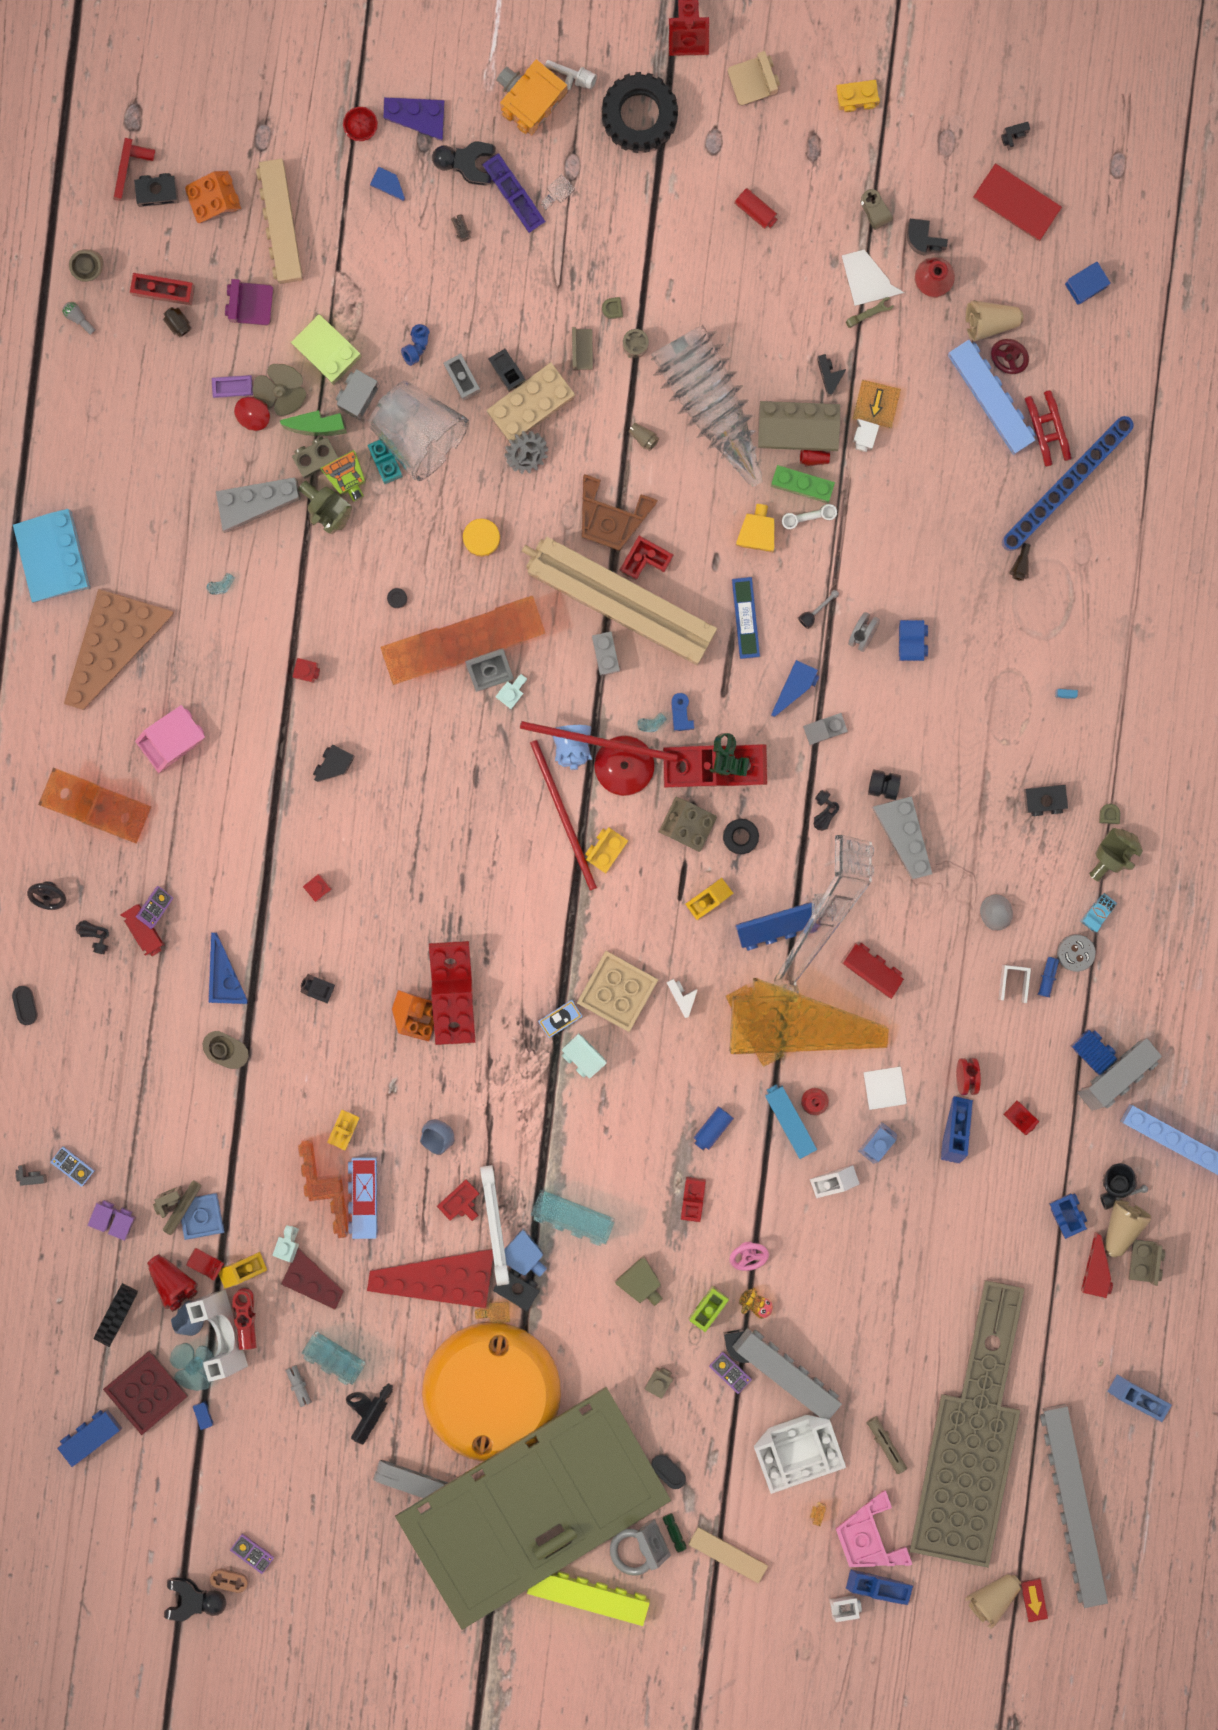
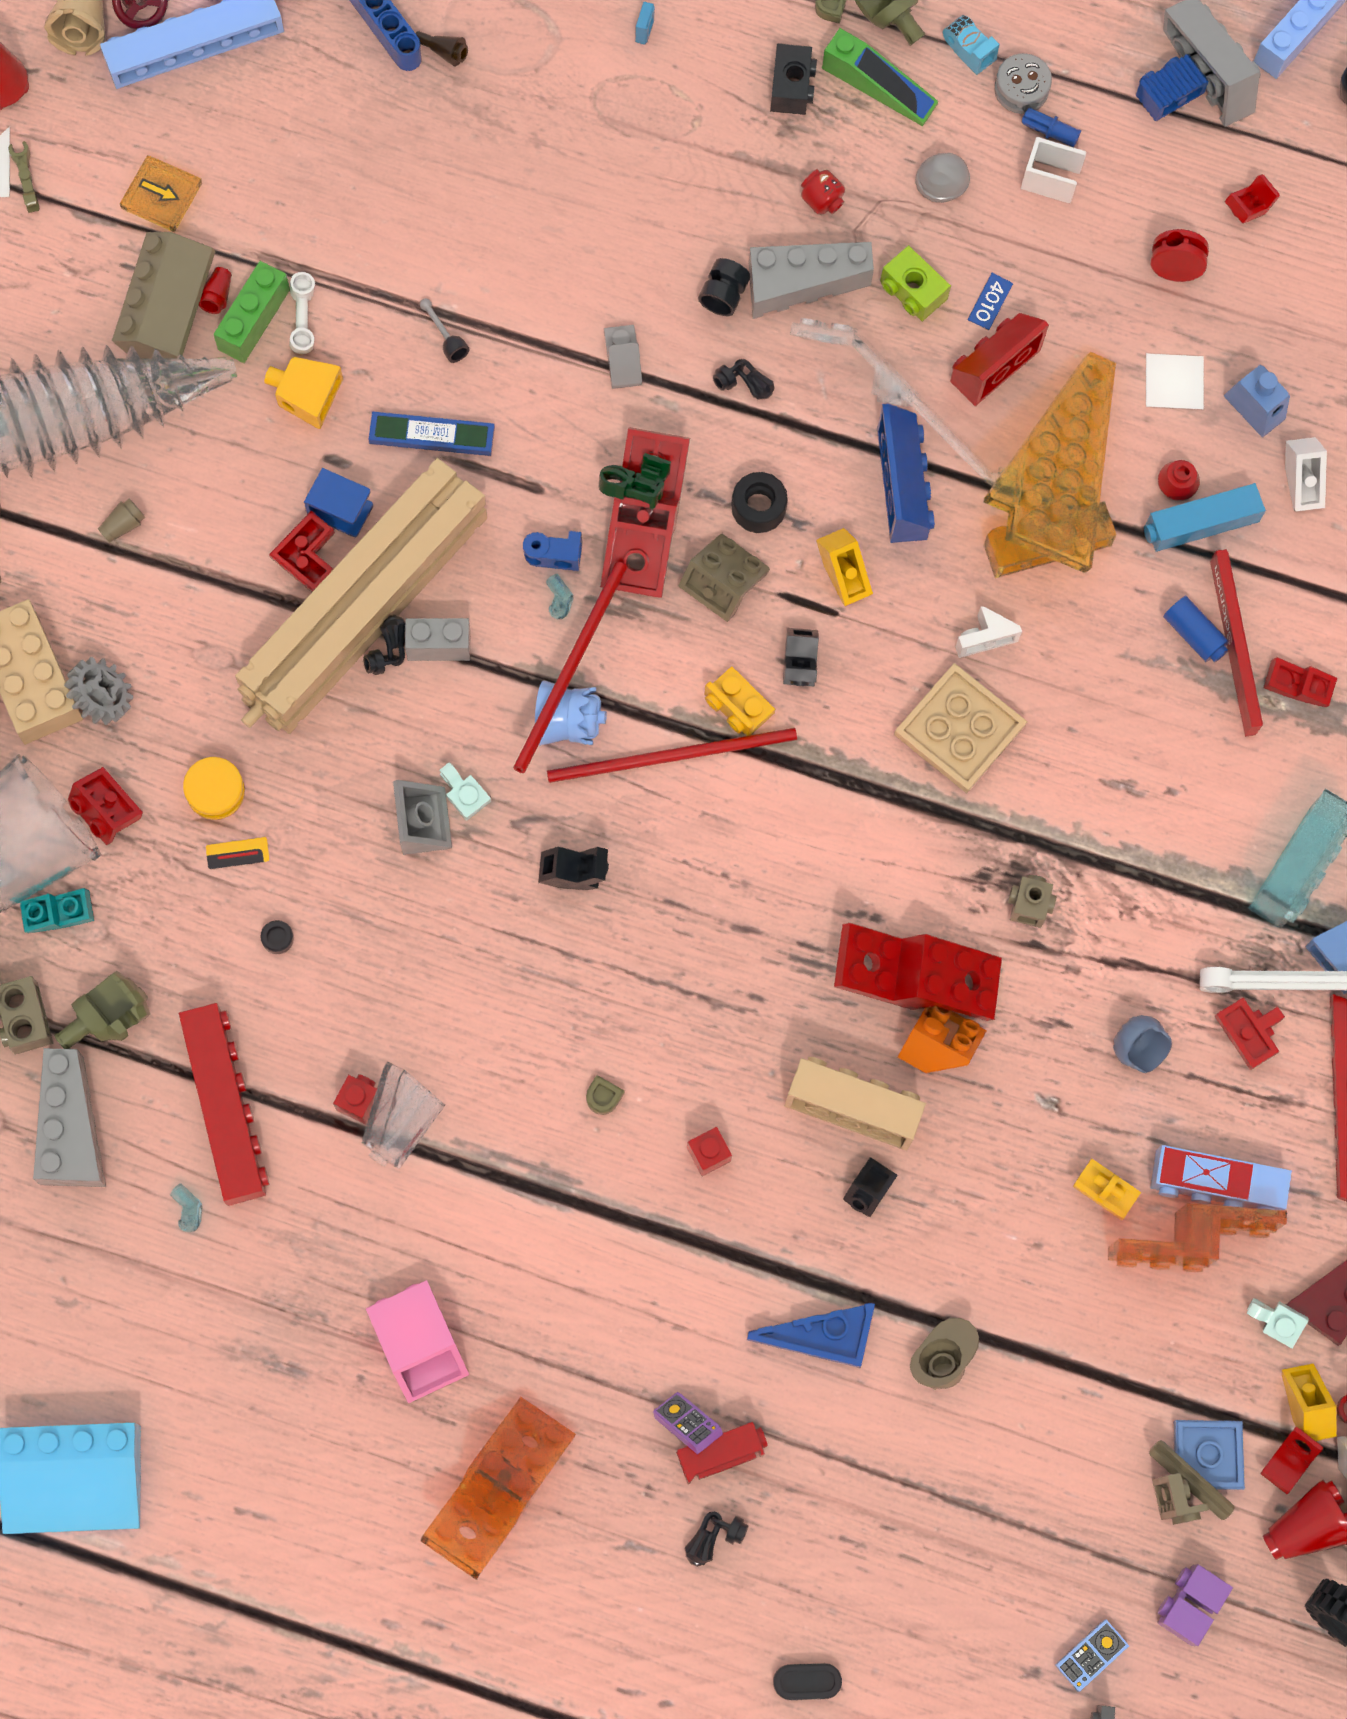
camera: 80 degrees left, 15 degrees down
(47, 892) = (625, 1599): black piece -> none
(112, 638) = (232, 1405): nougat wing -> none
(287, 590) = (223, 1105): none -> red brick
(298, 698) = (399, 1116): none -> clear slope
(335, 764) = (516, 1083): black slope -> none
(340, 817) = (603, 1096): none -> olive tile
(346, 475) = (63, 973): torso -> none
(362, 968) = (855, 1103): none -> tan brick
(445, 561) = (237, 853): none -> sticker
(456, 472) = (103, 805): none -> red bracket
(463, 641) = (367, 841): clear orange bracket -> none
(475, 769) = (573, 869): none -> black brick
(505, 1054) = (1032, 900): none -> dark tan brick
(560, 1018) = (987, 822): tile -> none
(584, 1056) = (1053, 793): light aqua slope -> none
(603, 625) = (393, 632): none -> black piece
(607, 523) = (238, 601): dark orange wing -> none
(619, 780) = (622, 669): red dish -> none
(640, 883) = (800, 657): none -> brick
(683, 571) = (339, 502): none -> blue piece
(710, 1154) = (1237, 643): none -> red tile
(797, 683) = (545, 377): blue slope -> none
(829, 379) = (106, 247): black slope -> none
(863, 632) = (491, 268): light grey head -> none
(865, 435) = (202, 213): white window -> none
(912, 640) = (519, 210): blue brick -> none
(916, 959) = (990, 301): none -> blue sticker
(925, 902) = (912, 268): none -> lime brick
(957, 1131) = (1259, 290): blue slope -> none
(966, 835) = (823, 192): none -> red head
(1059, 857) = (877, 77): none -> bright green slope

